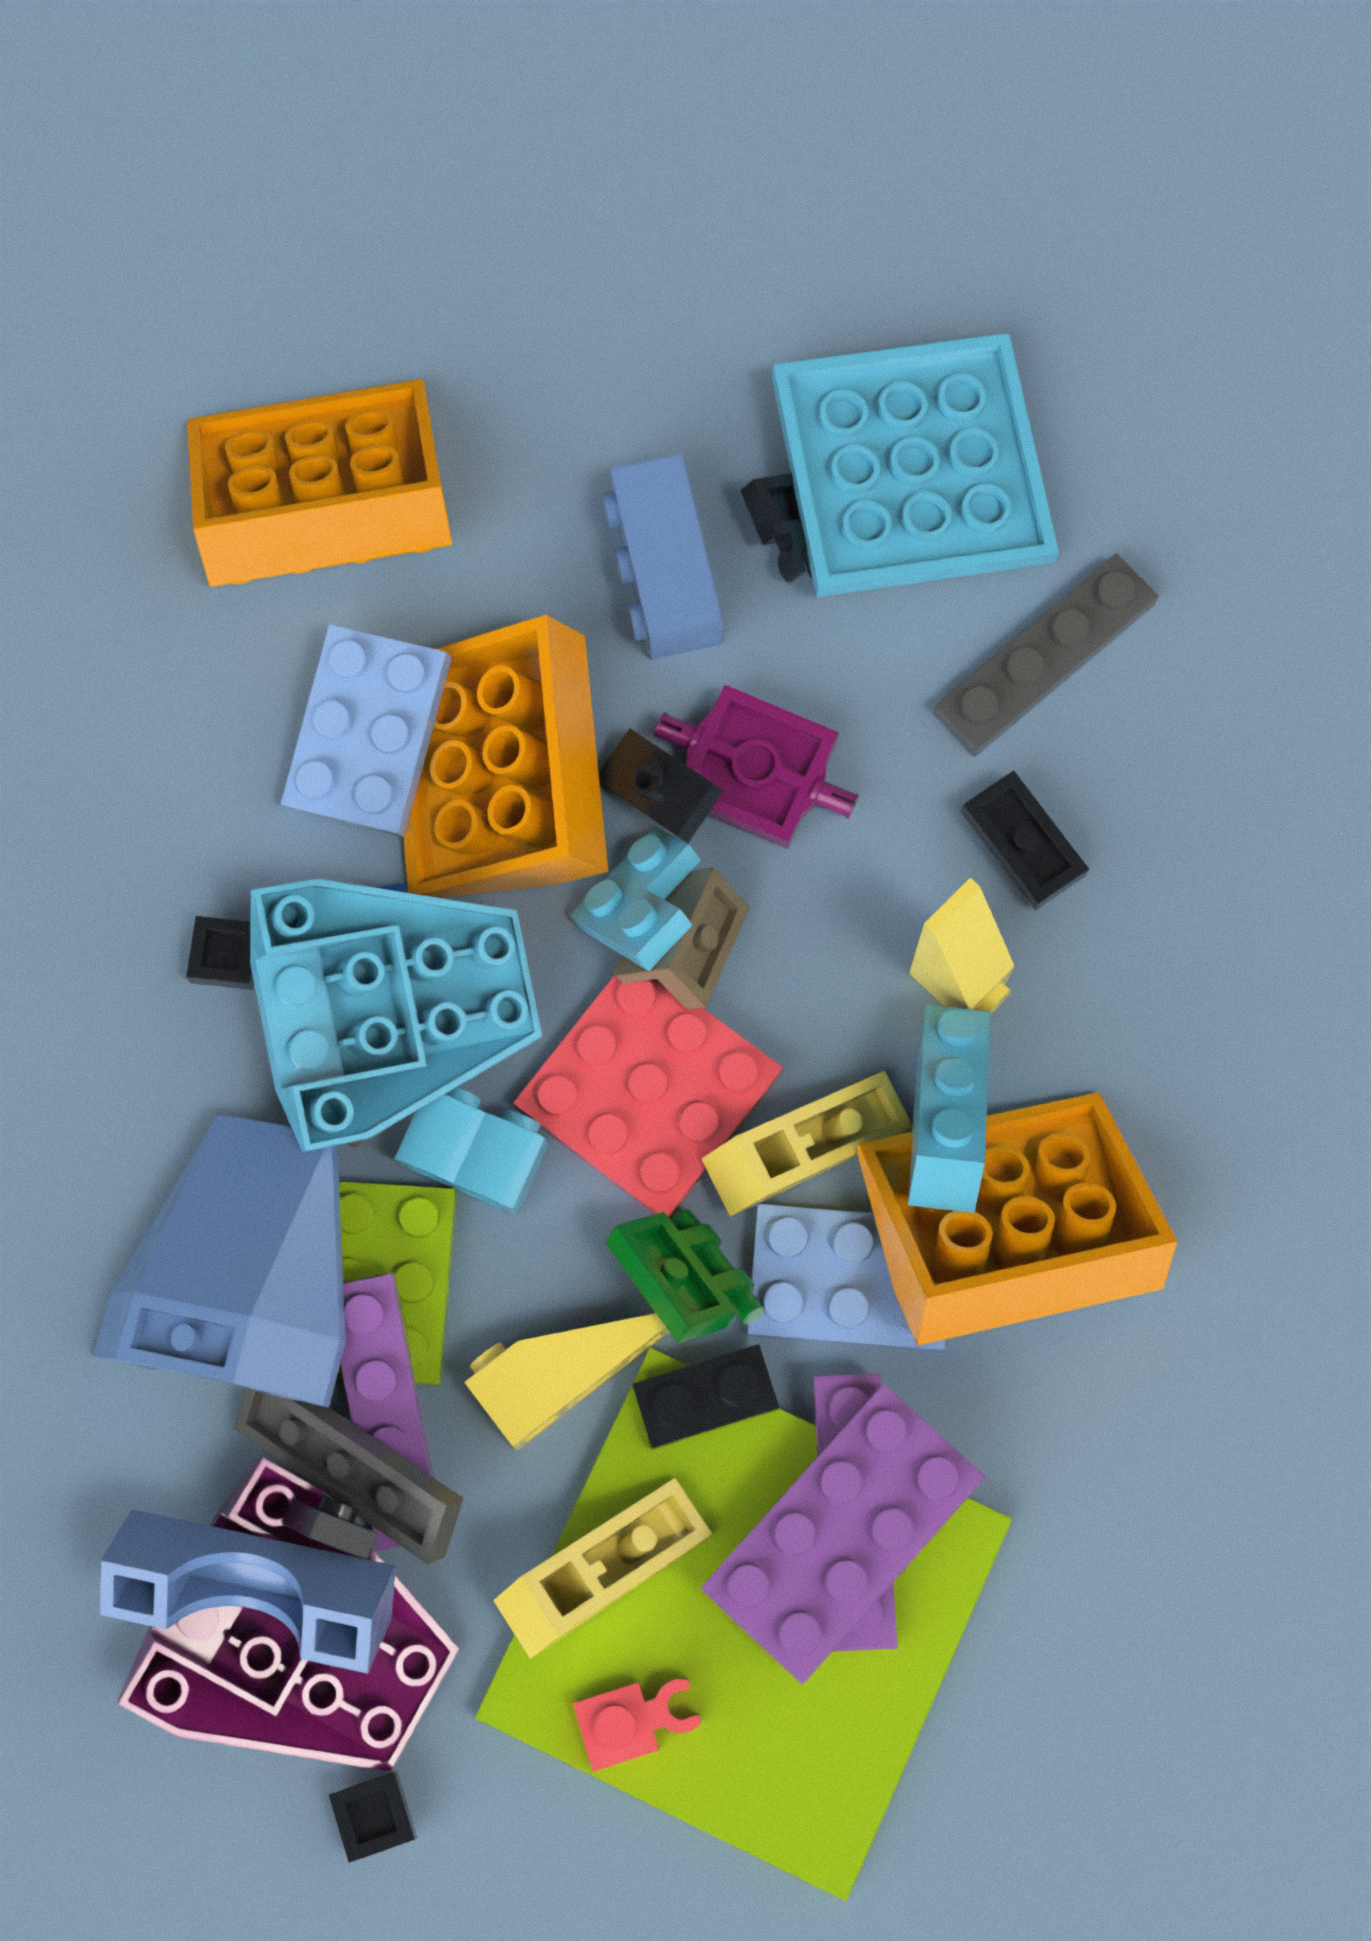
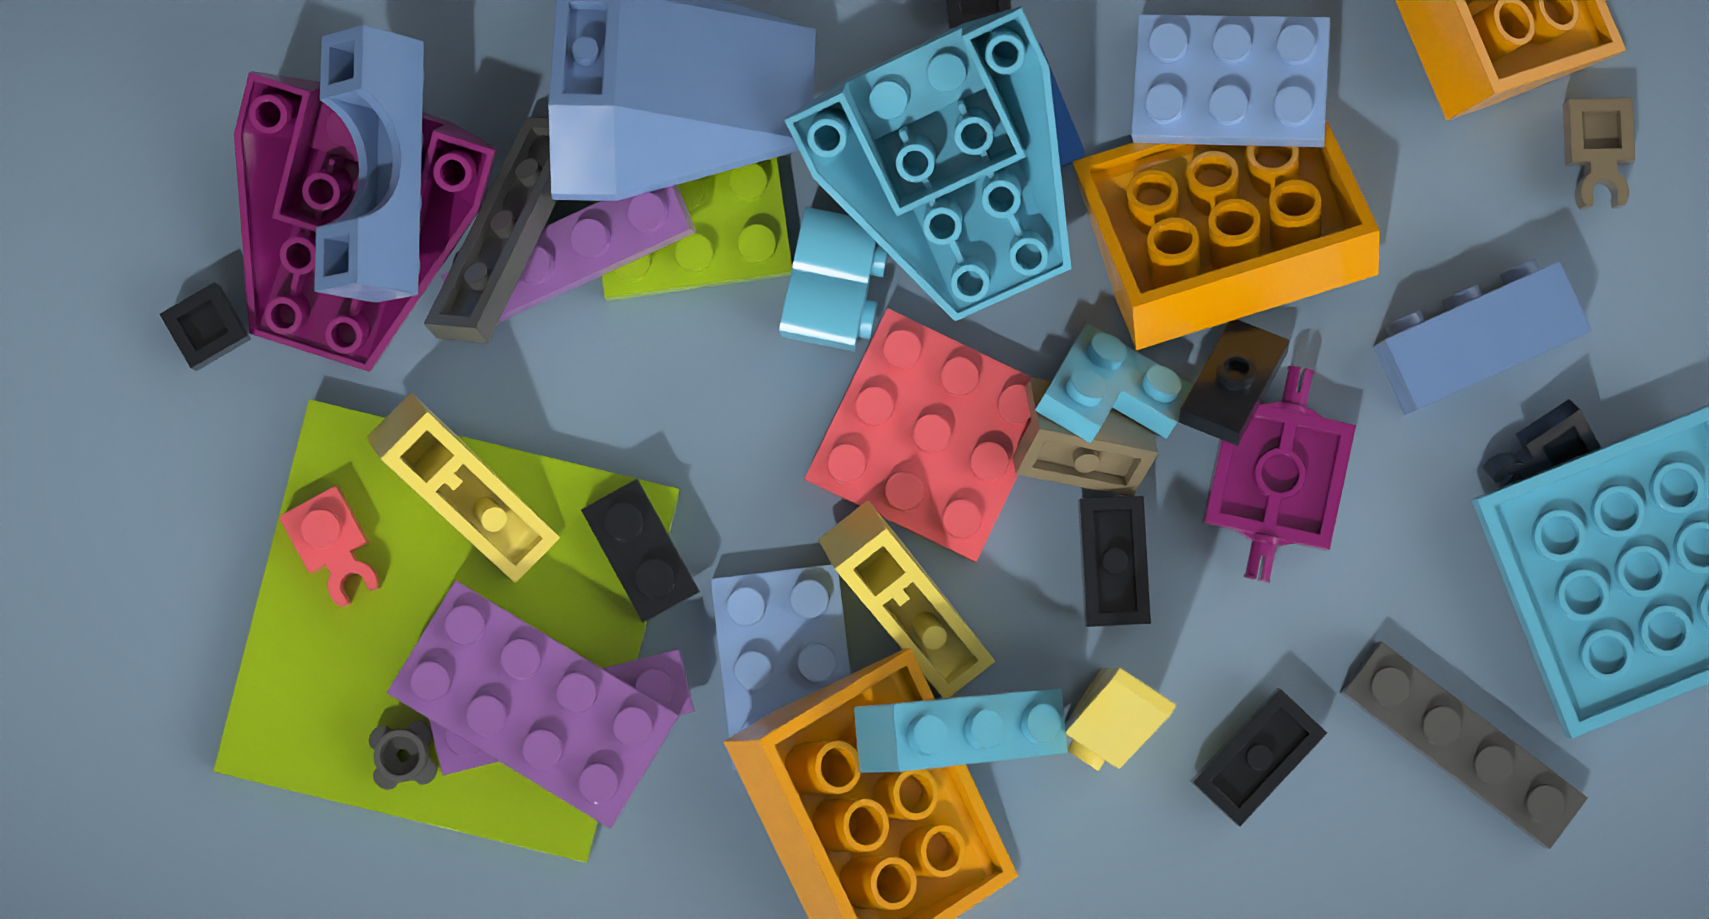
camera: 75 degrees right, 10 degrees up
(331, 1524) = (441, 226): black plate -> none
(502, 415) = (1599, 138): none -> dark tan plate
(552, 1373) = (630, 396): light yellow slope -> none
(684, 1274) = (740, 497): green plate -> none
(809, 936) = (1114, 561): none -> black plate
(879, 1704) = (386, 746): none -> dark grey plate

